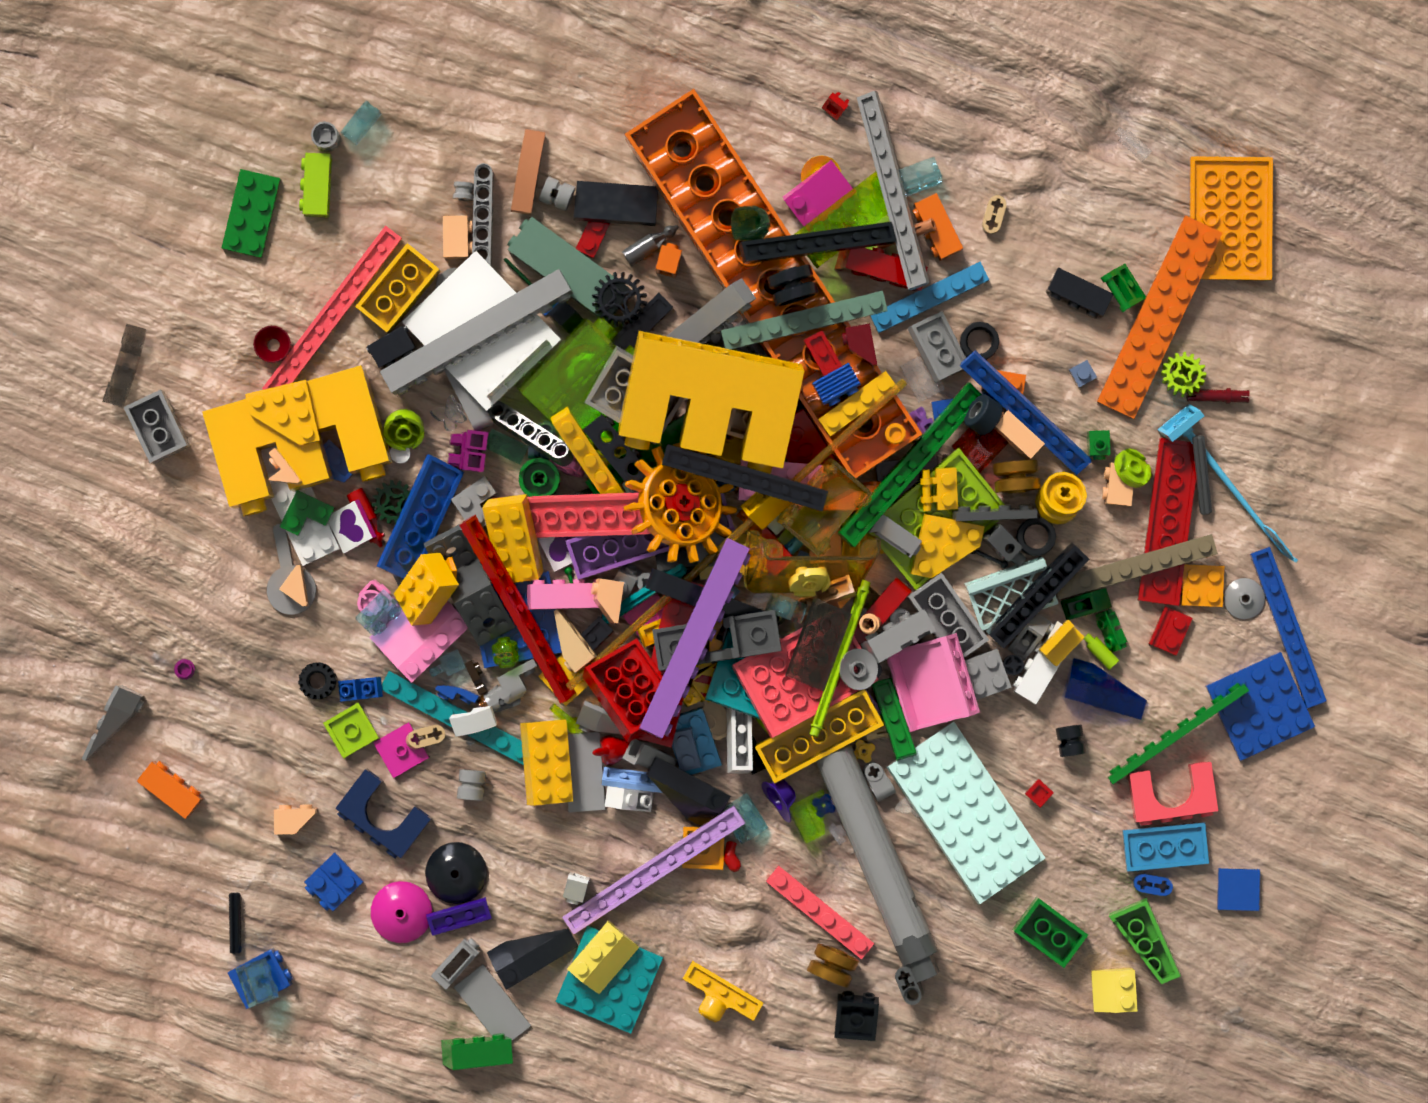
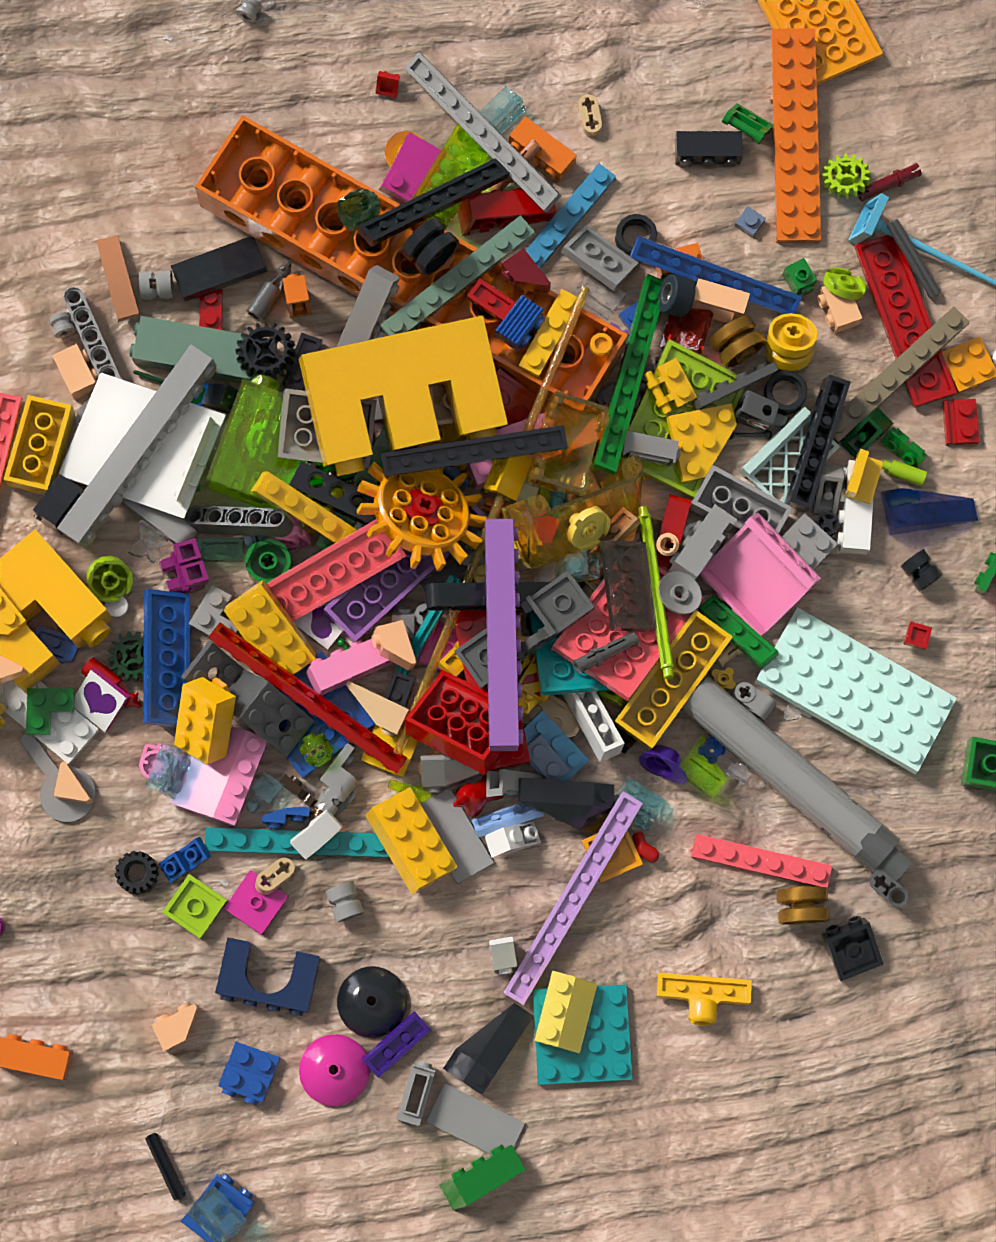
camera: 30 degrees left, 10 degrees down
(778, 691) = (598, 656): none -> dark grey pin

